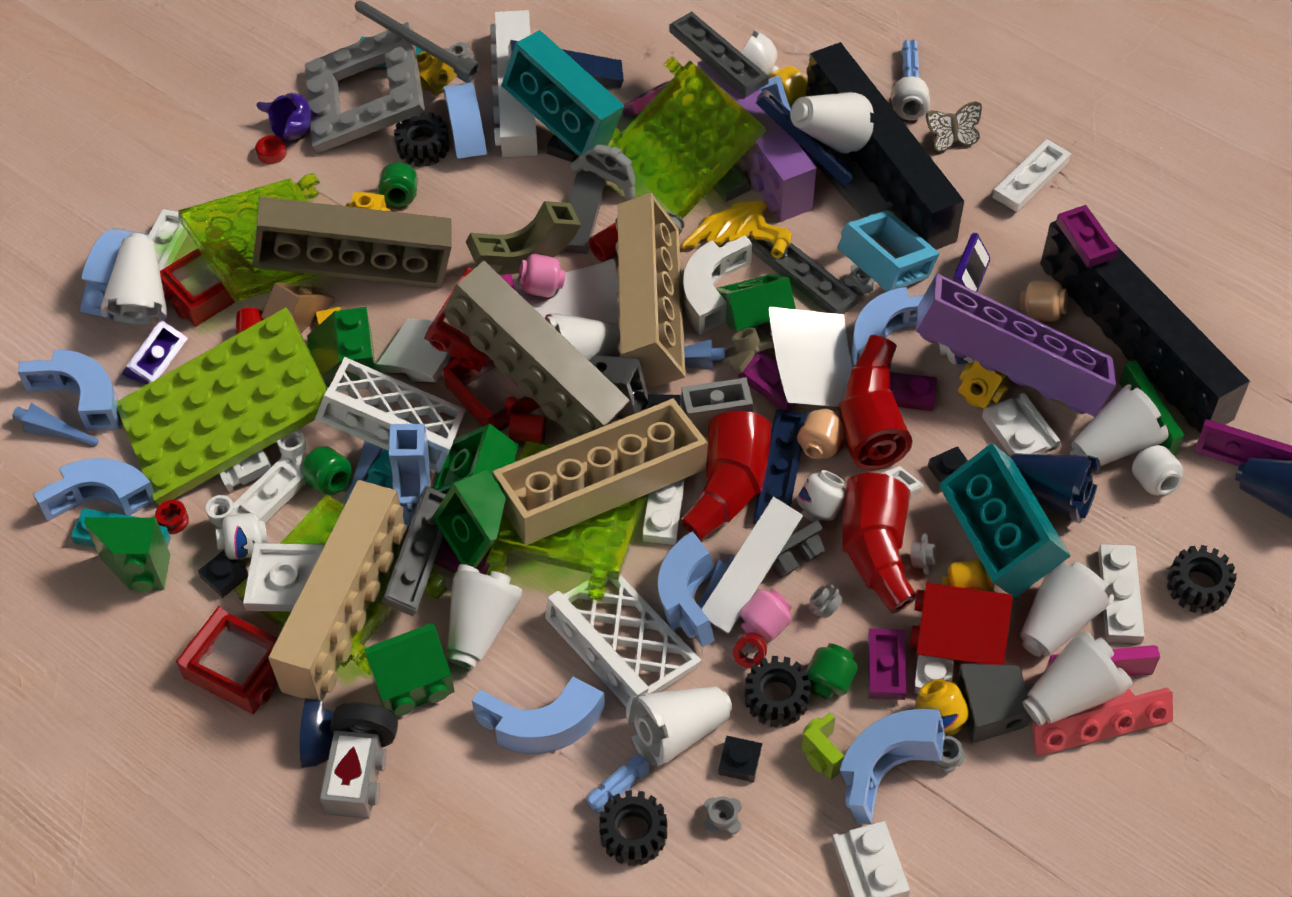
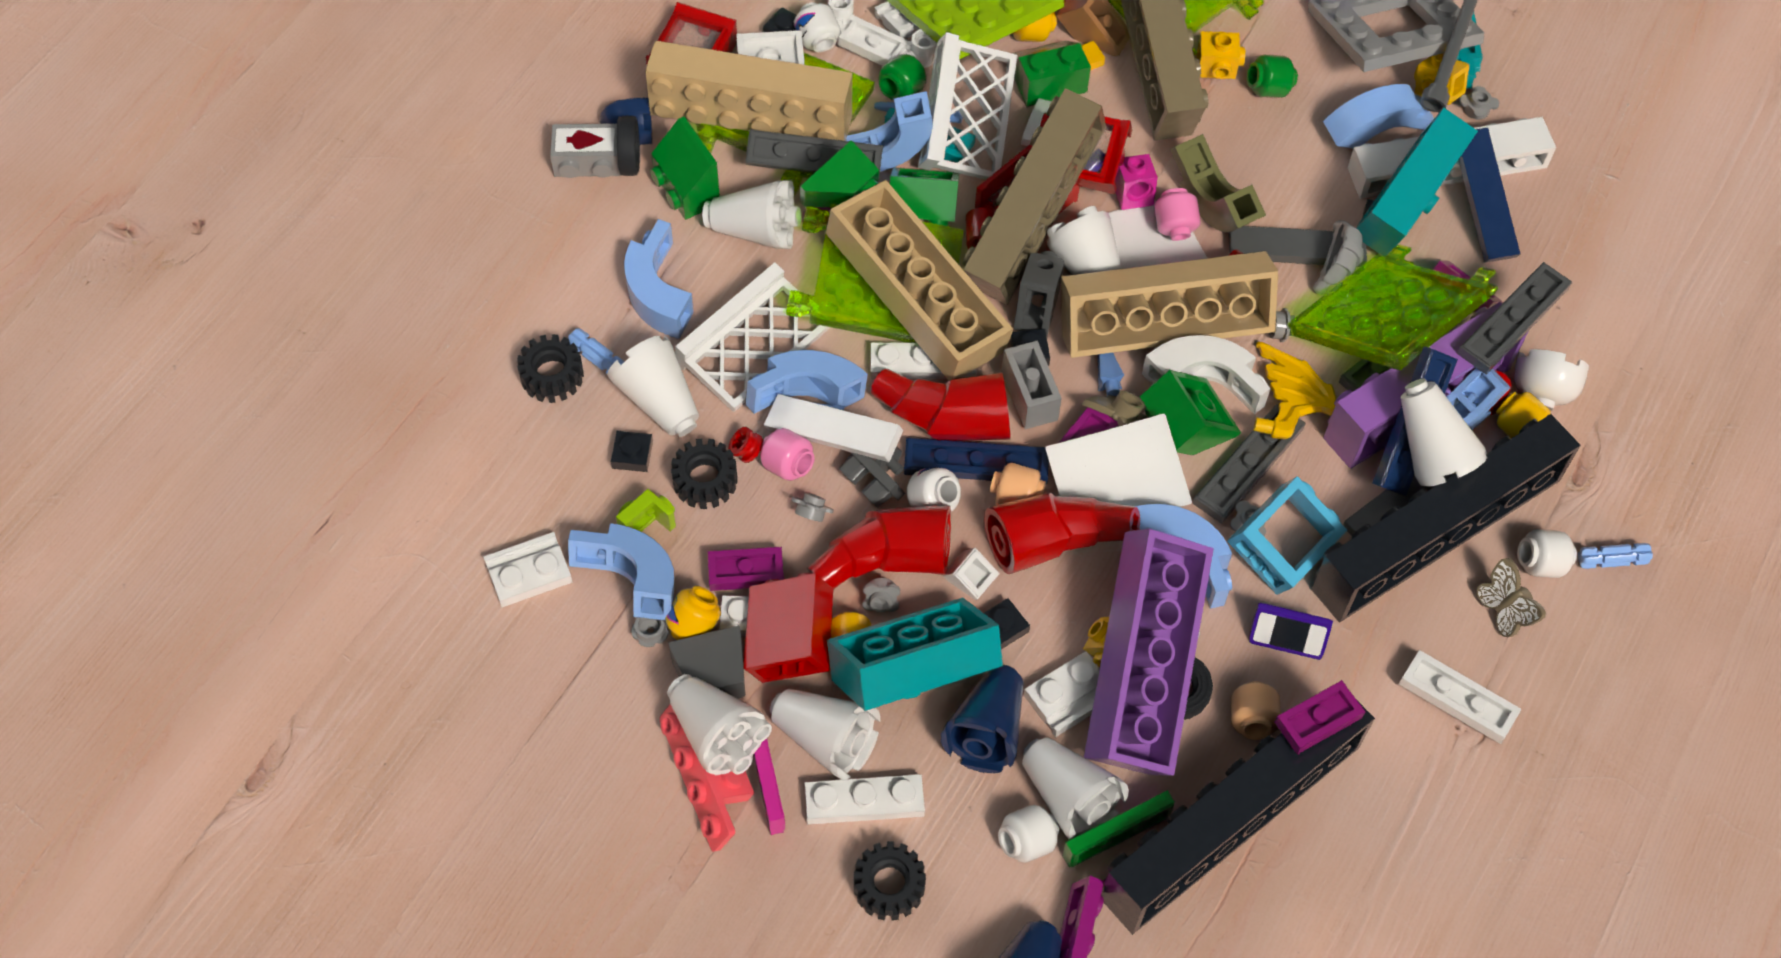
camera: 80 degrees right, 5 degrees up
(422, 150) = (1344, 74): black tyre -> none
(724, 805) = (567, 432): light grey plate -> none
(831, 671) = (729, 516): green head -> none
(913, 390) = (1100, 573): magenta plate -> none

